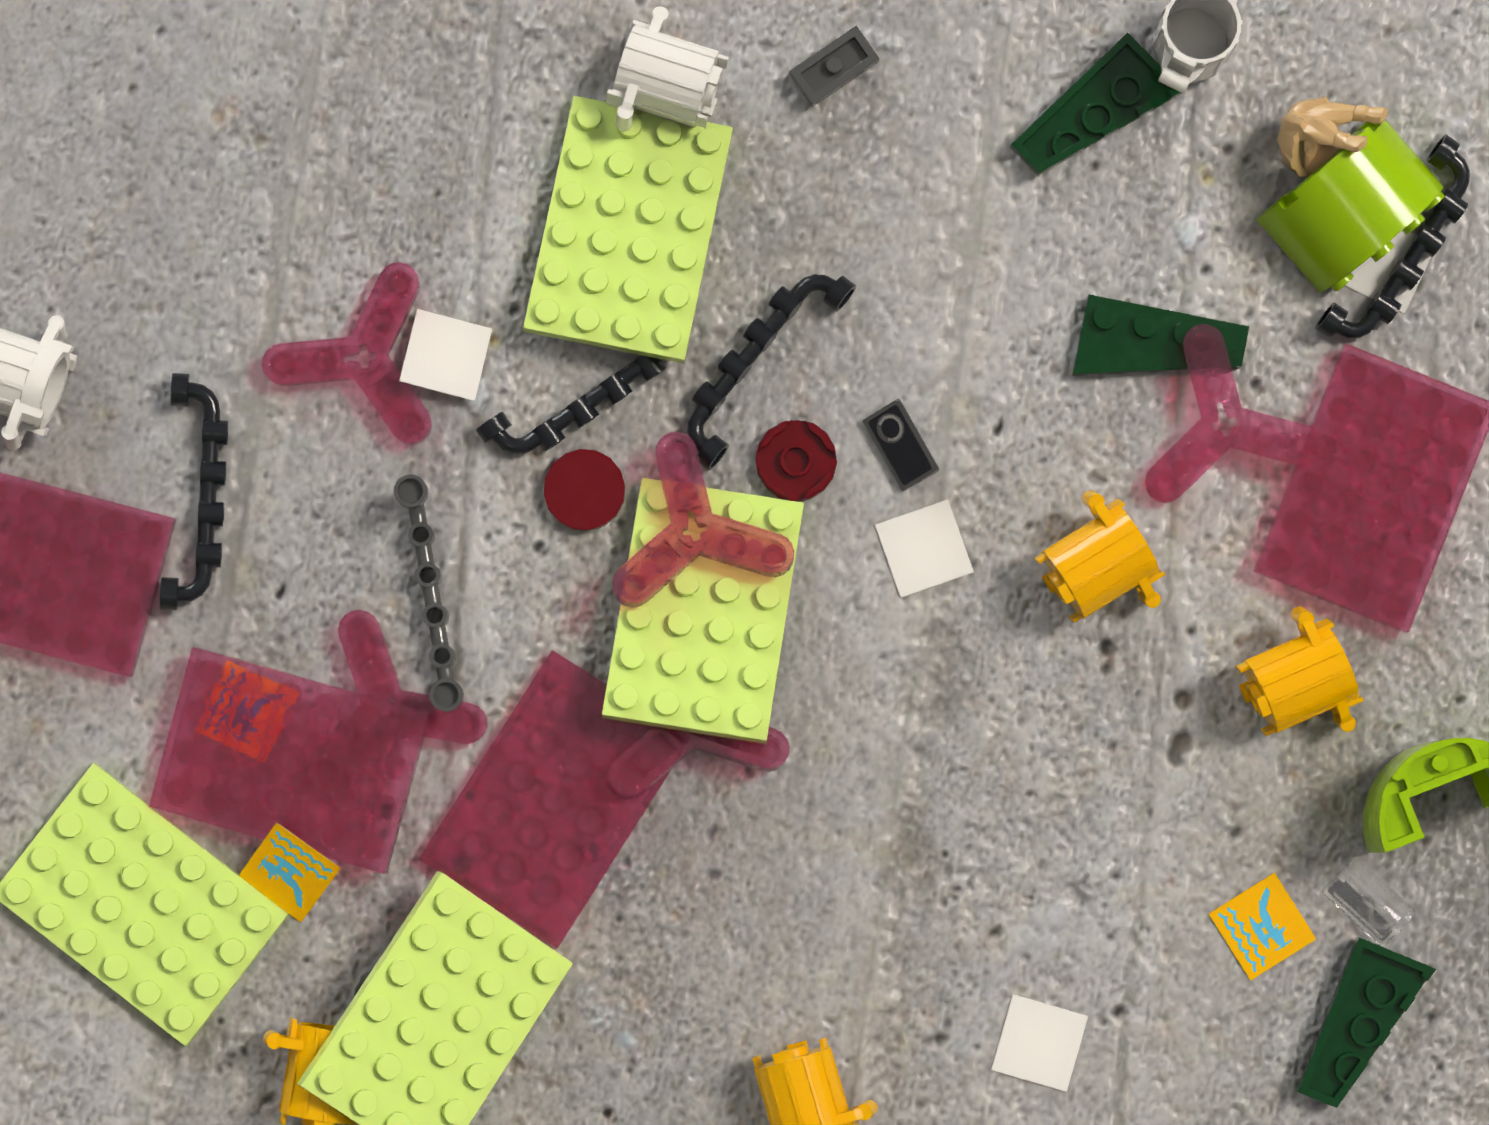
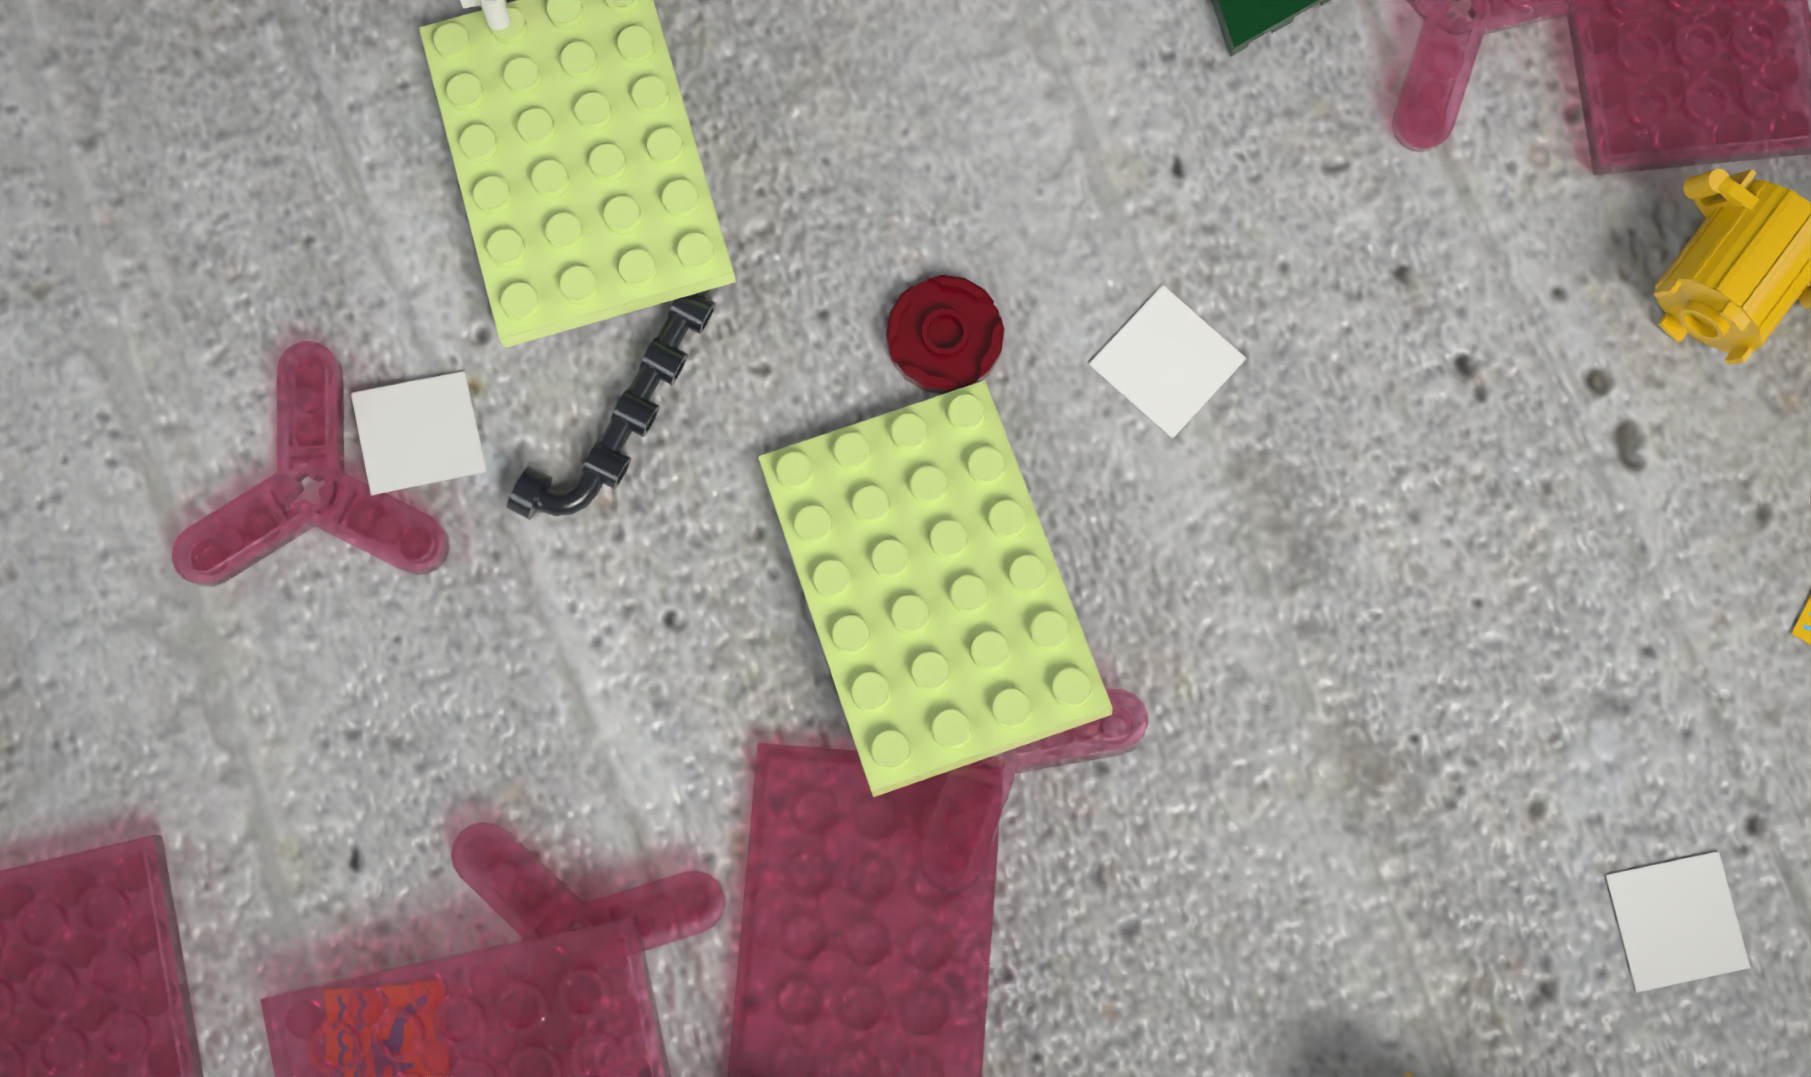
camera: 30 degrees left, 5 degrees down
(209, 511) = (199, 801): black bar -> none
(412, 494) = (460, 631): dark grey bar -> none
(584, 490) = (691, 512): dark red tile -> none
(672, 551) = (849, 523): clear pink piece -> none
(760, 337) = (806, 254): black bar -> none
(901, 445) = (1068, 244): slope -> none
(1101, 561) = (1410, 249): yellow container -> none

